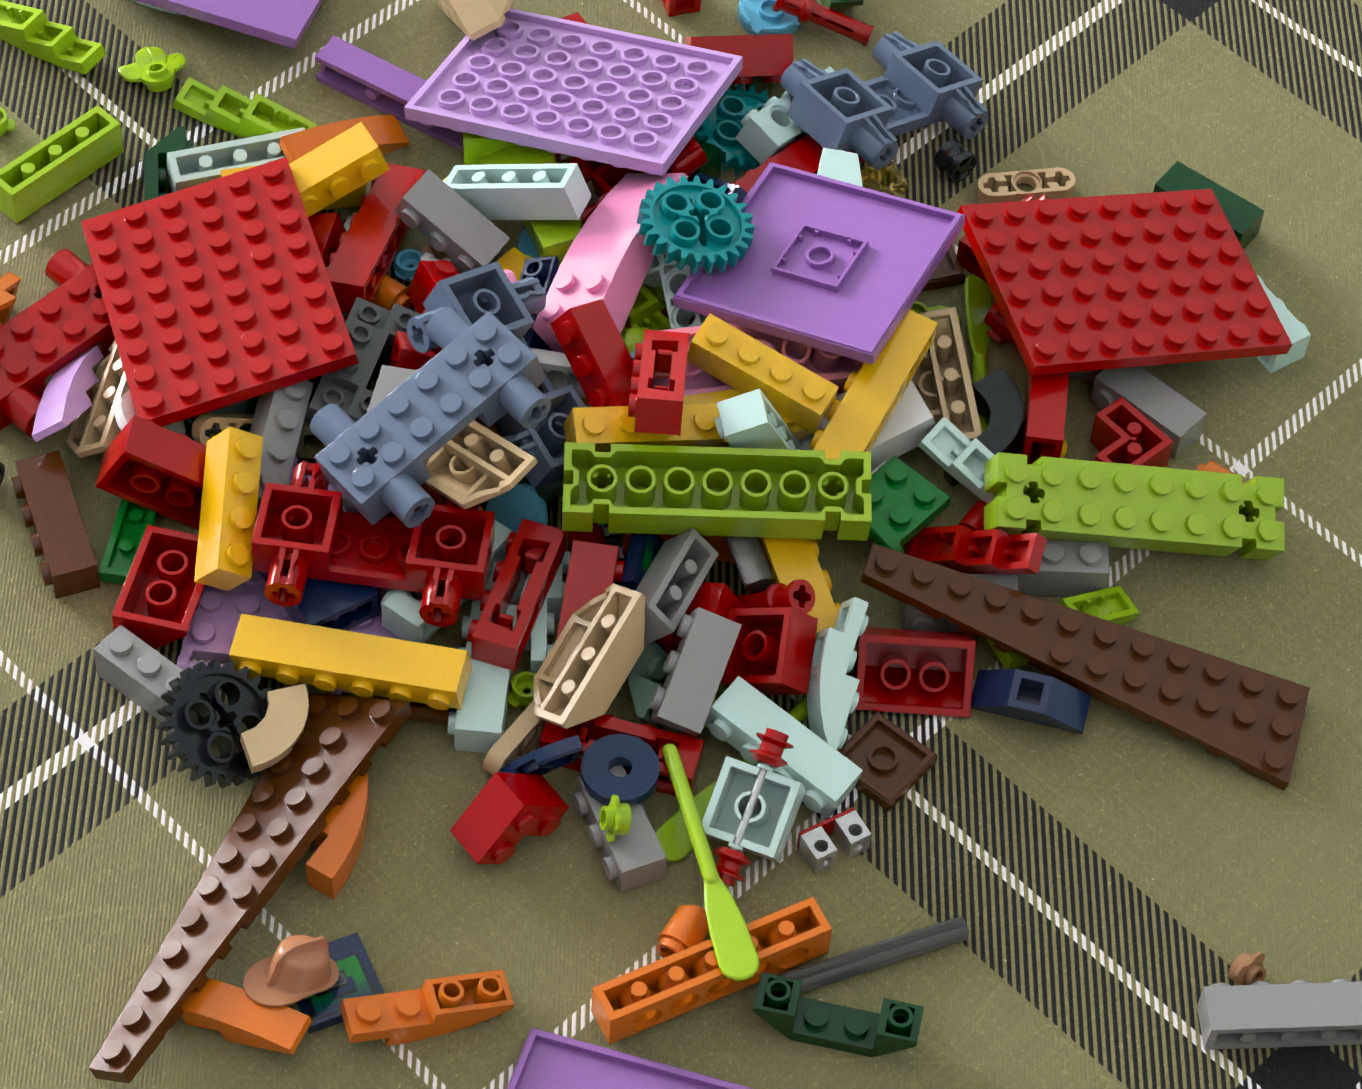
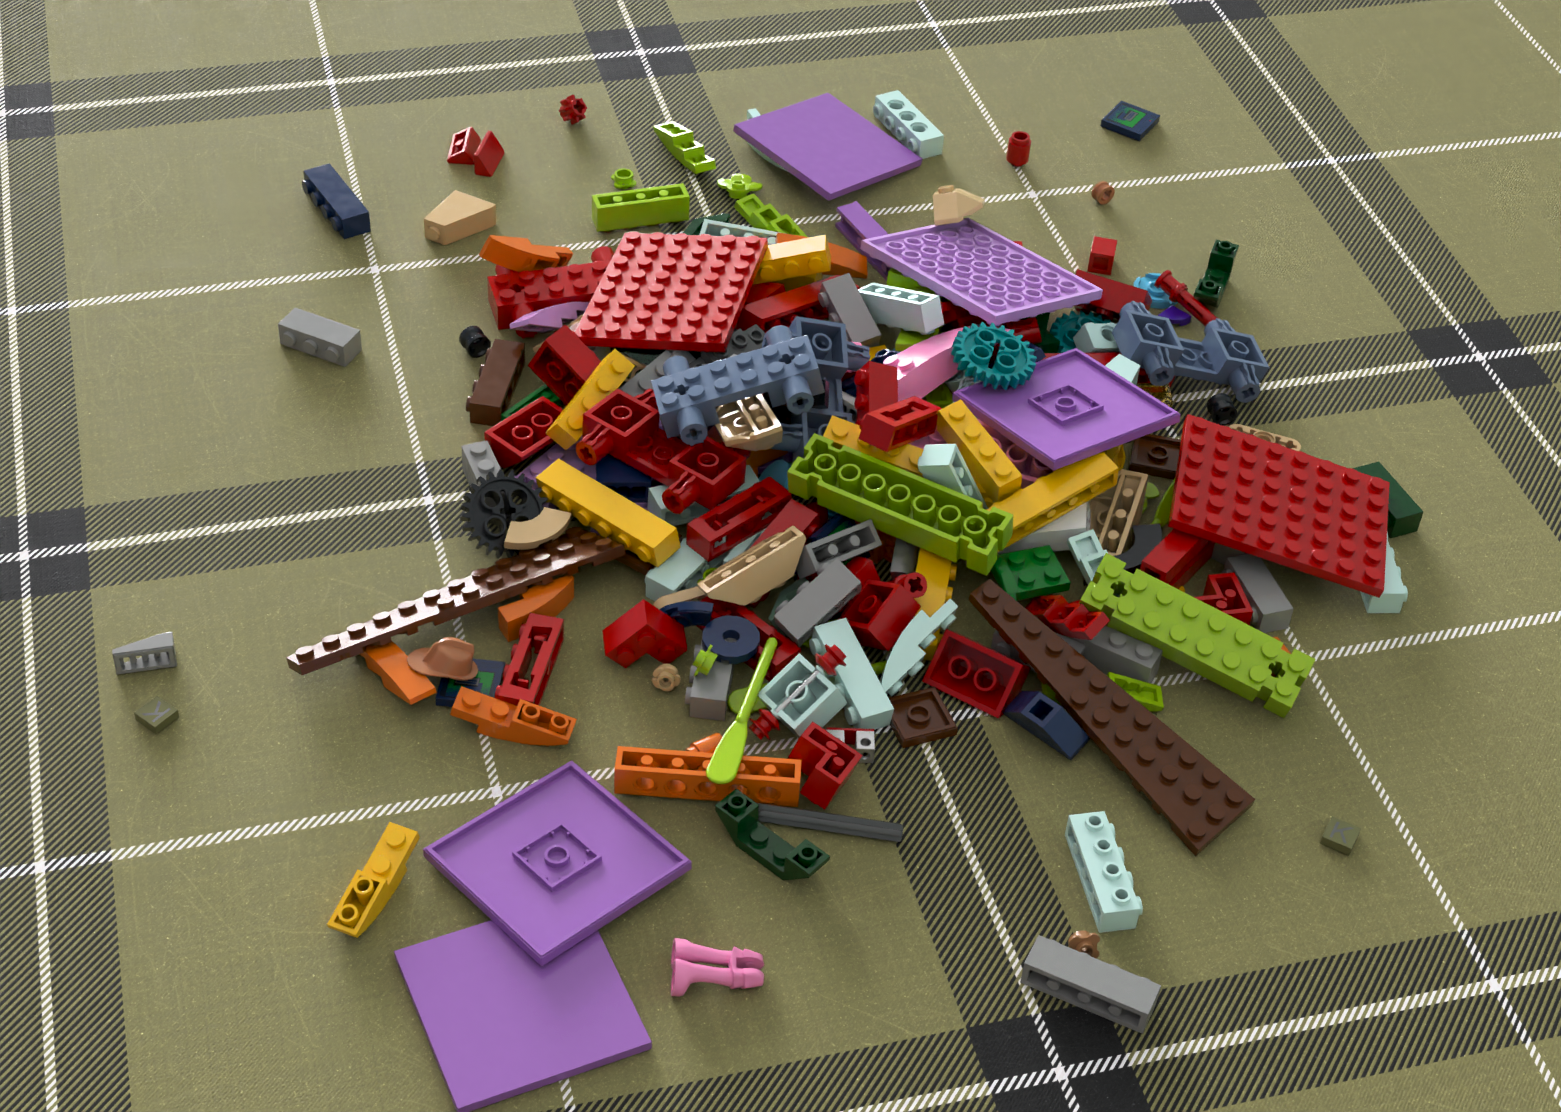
camera: 30 degrees right, 10 degrees down
(377, 868) = (547, 637): none -> red brick
(565, 856) = (666, 671): none -> tan plate
(815, 43) = (1176, 316): none -> dark purple tile
(841, 884) = (826, 763): none -> red brick
(1210, 865) = (1103, 872): none -> light aqua brick

